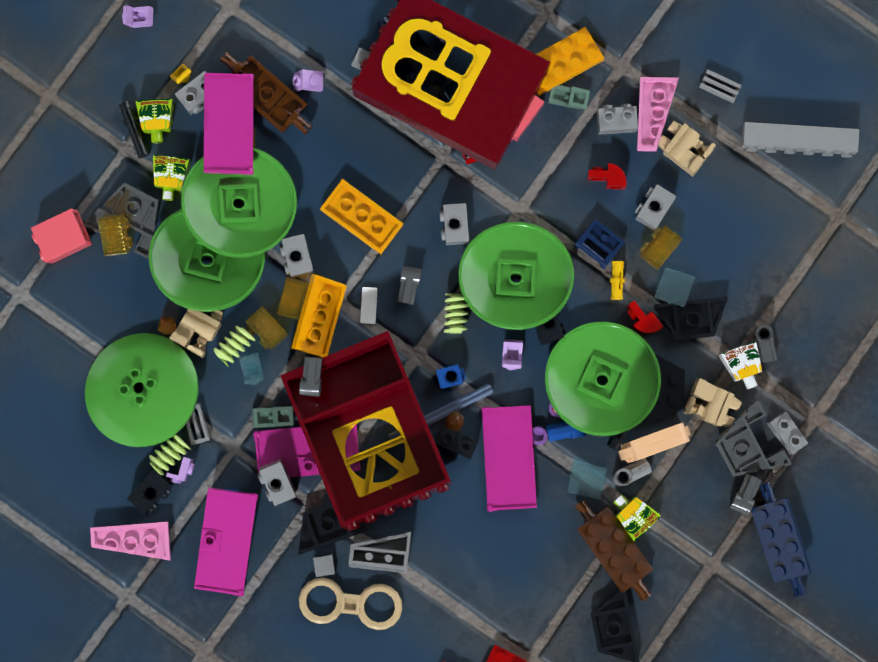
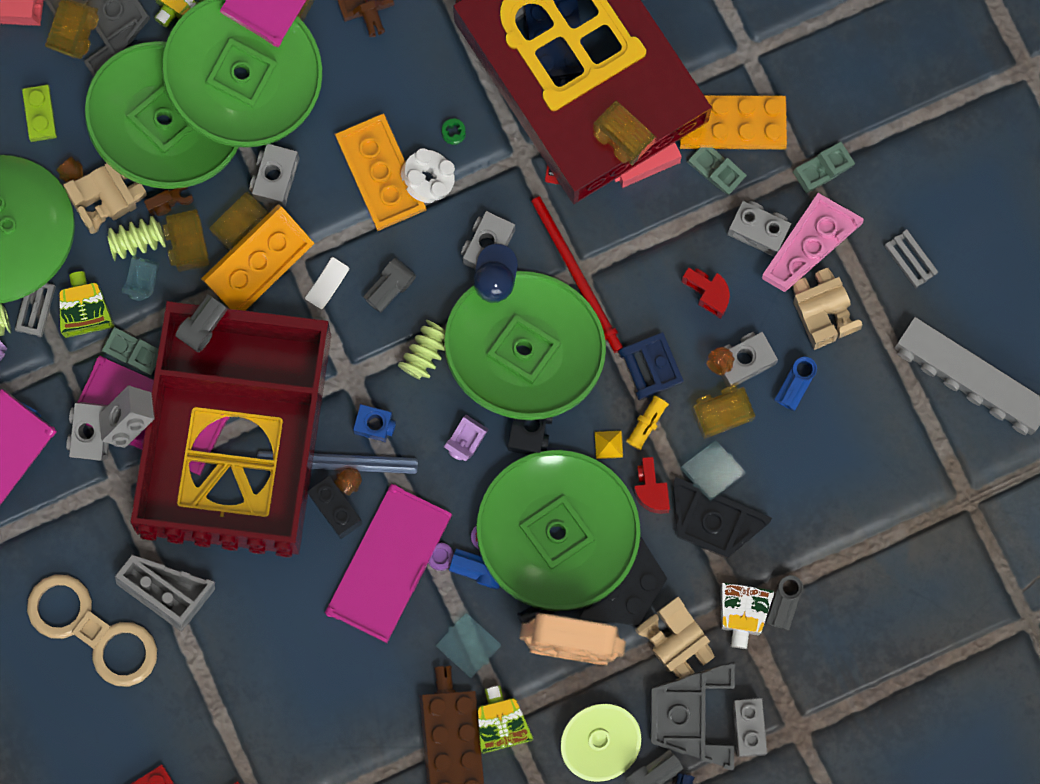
camera: 30 degrees right, 5 degrees down
(125, 300) = (39, 113): none -> lime plate
(226, 407) = (83, 308): none -> torso
(237, 313) = (162, 203): none -> reddish brown plate
(298, 462) = (126, 416): none -> light grey brick
(323, 528) = (108, 520): black wing -> none
(324, 565) = (87, 565): light grey tile -> none
(386, 209) = (437, 166): none -> white plate
(396, 168) = (456, 139): none -> green bush
(472, 240) = (495, 273): none -> dark blue cap
(506, 110) = (623, 133): none -> clear yellow brick
(519, 211) = (609, 332): none -> red bar
(601, 307) = (608, 444): none -> yellow slope
(633, 472) = (532, 667): light grey piece -> none
(634, 58) = (823, 167): none -> sand green slope
(643, 217) = (720, 360): none -> clear orange plate
(694, 206) = (795, 385): none -> blue piece
(703, 493) = (601, 742): none -> yellowish green hat

